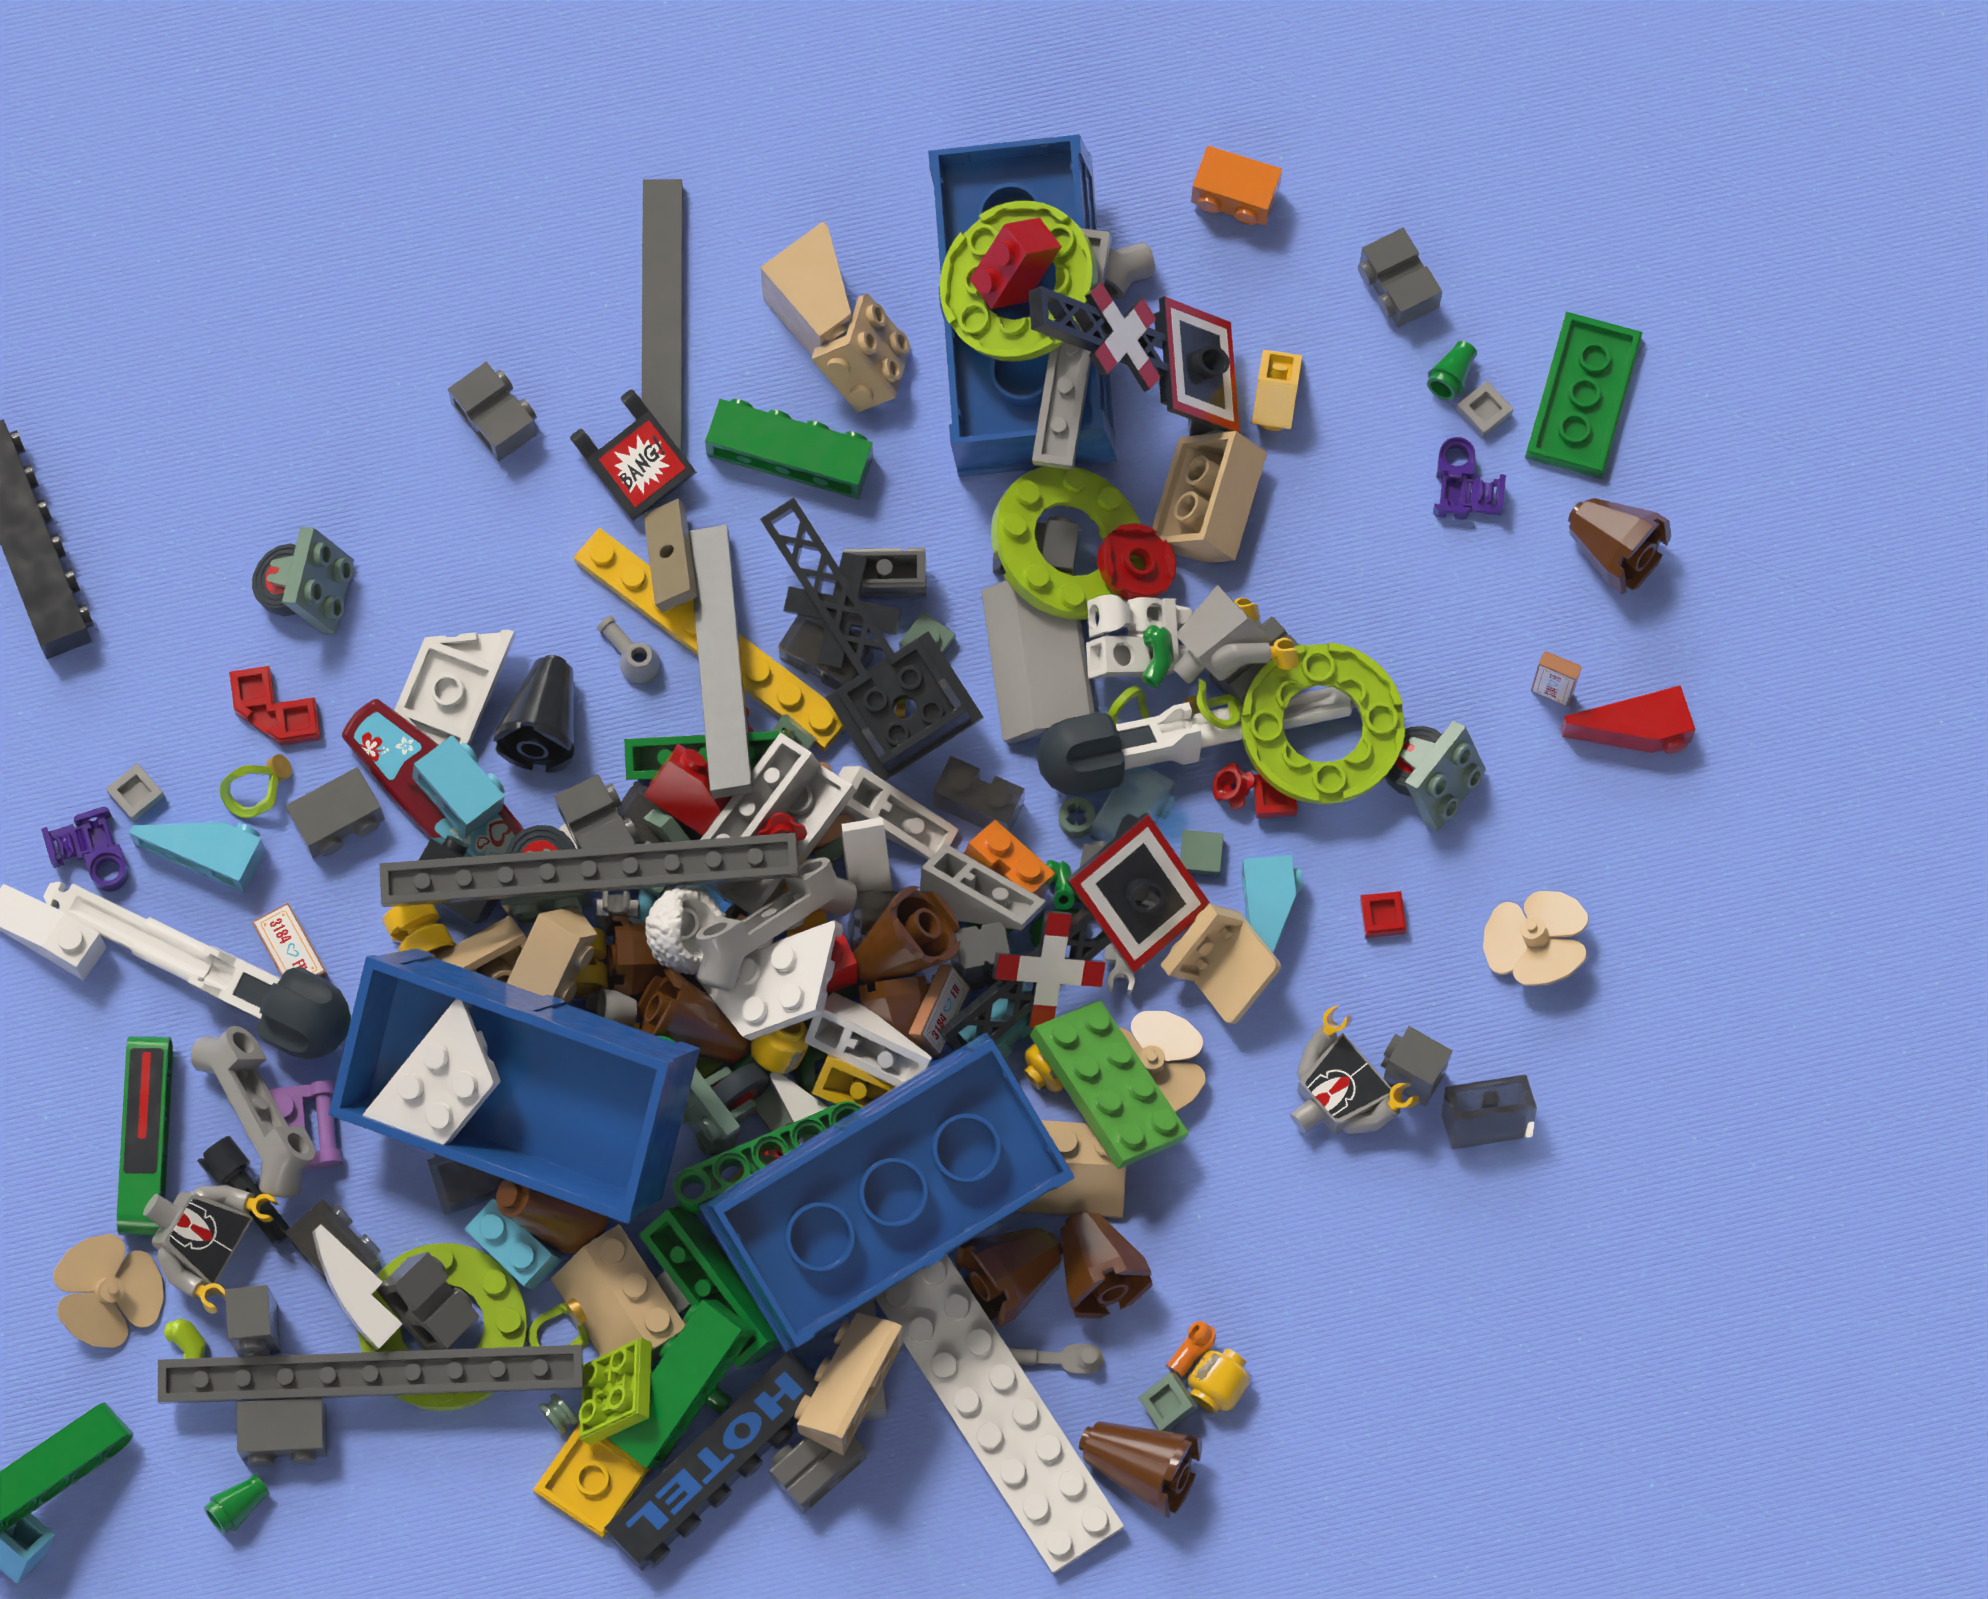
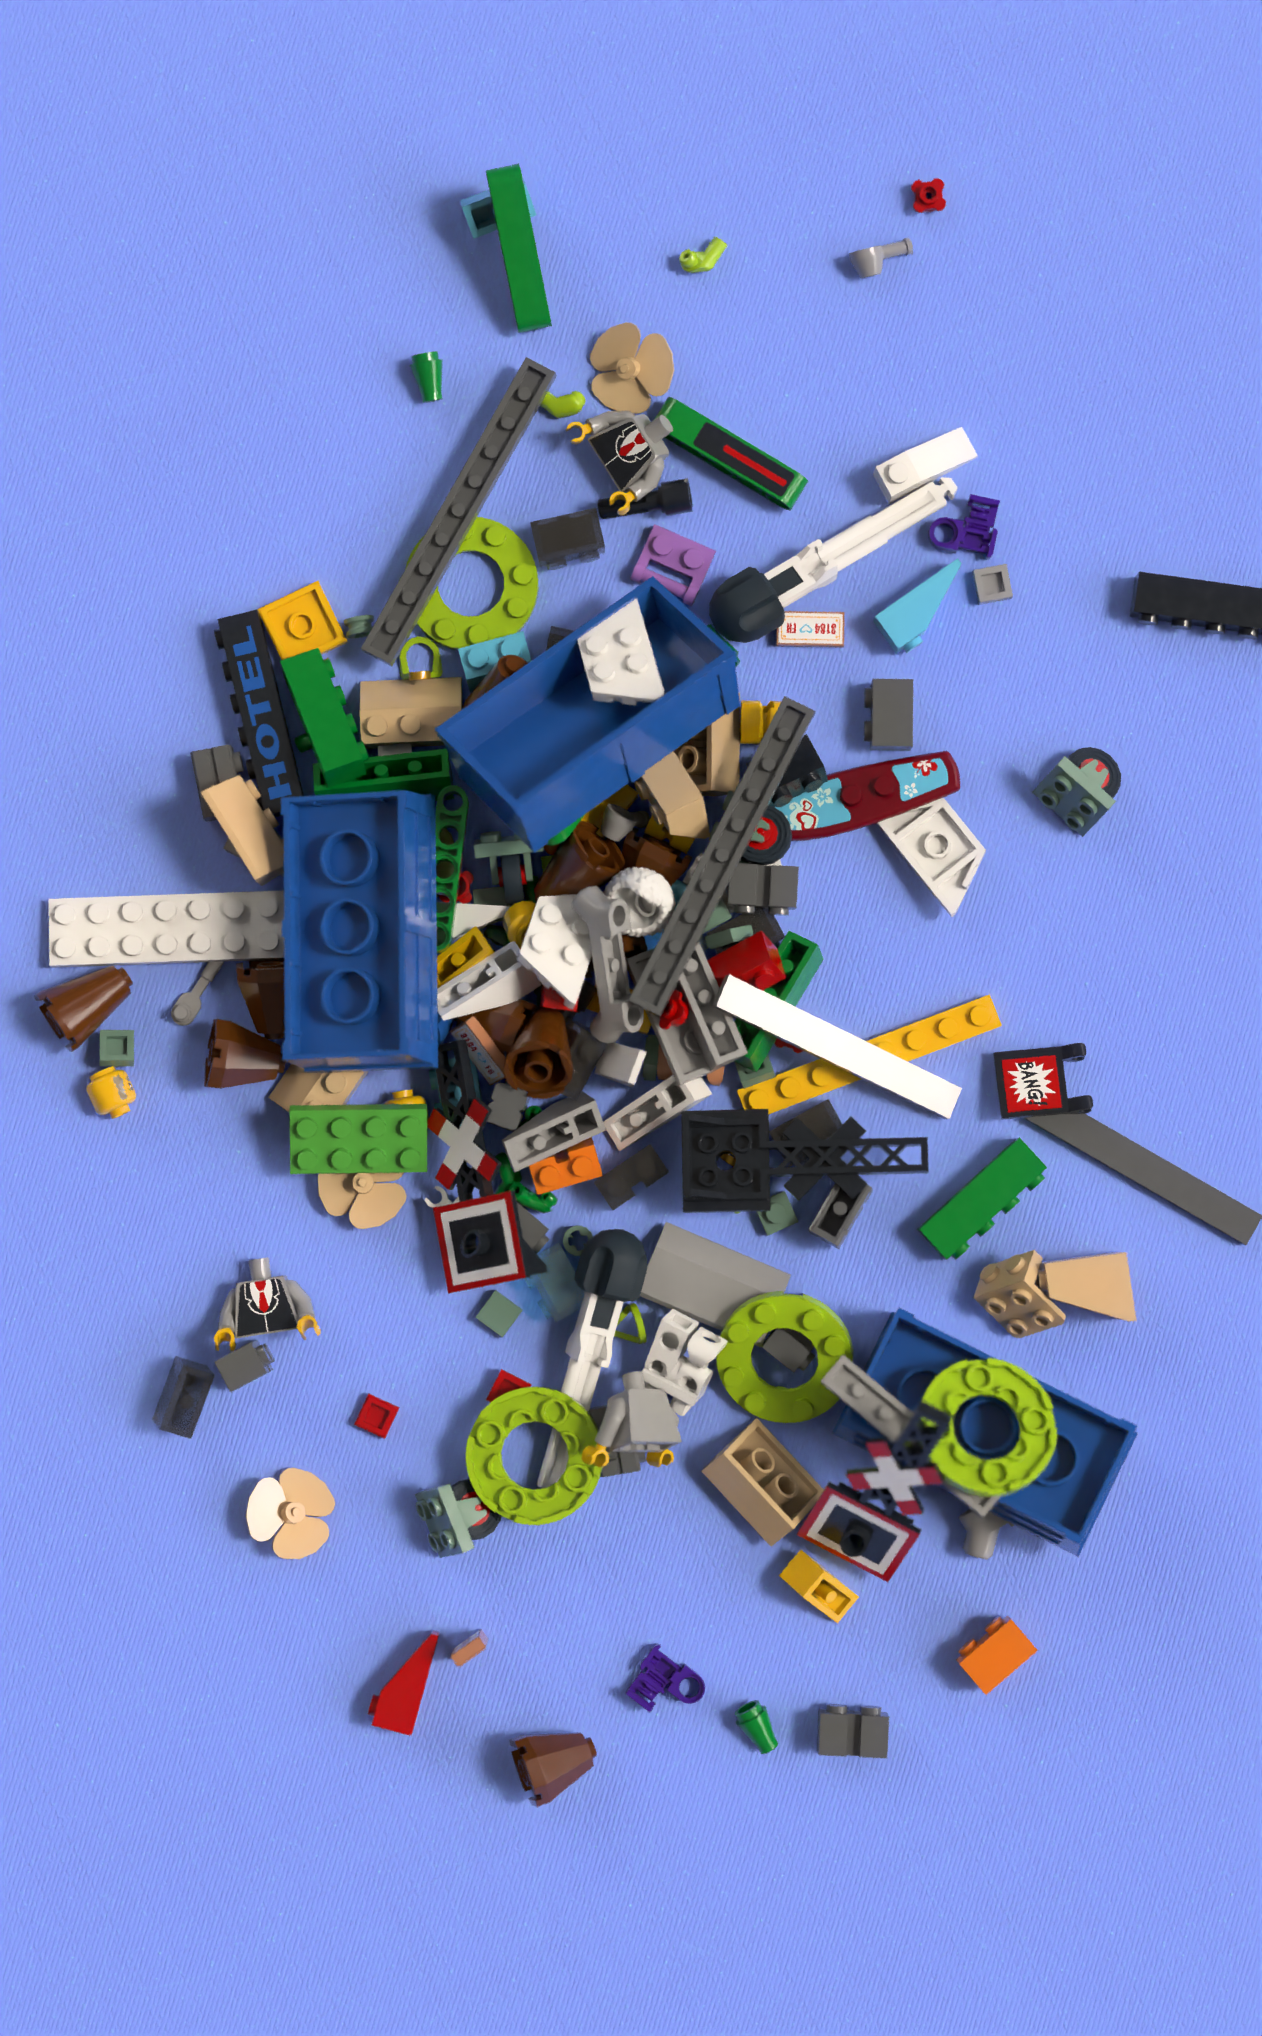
camera: 120 degrees right, 15 degrees up
(252, 1321) = (543, 450): dark grey brick -> none
(276, 767) = (950, 693): lime piece -> none
(282, 1148) = (657, 536): light grey plate -> none
(282, 1429) = (459, 431): dark grey brick -> none
(283, 721) = (1011, 706): red tile -> none
(353, 1289) = (521, 531): white slope -> none
(427, 1303) = (485, 578): dark grey brick -> none
(459, 785) = (852, 807): medium azure brick -> none
(492, 412) = (1137, 1000): dark grey brick -> none
(540, 718) = (877, 900): black cone -> none
(615, 1391) = (346, 670): lime tile -> none
(633, 671) = (894, 994): light grey bar -> none
(670, 555) = (945, 1061): dark tan tile -> none
(1015, 262) = (997, 1430): red piece -> none
(1119, 572) = (745, 1379): red tile -> none
(1163, 655) = (653, 1370): green arm -> none
(1199, 1340) = (146, 1093): orange arm -> none
(1201, 705) = (606, 1378): lime piece -> none
(1223, 960) = (400, 1277): tan bracket -> none
(1224, 783) = (537, 1359): red plate -> none
(1270, 895) = (430, 1338): medium azure slope -> none
(1484, 409) = (714, 1732): light grey tile -> none
(1583, 395) = (683, 1813): green tile -> none

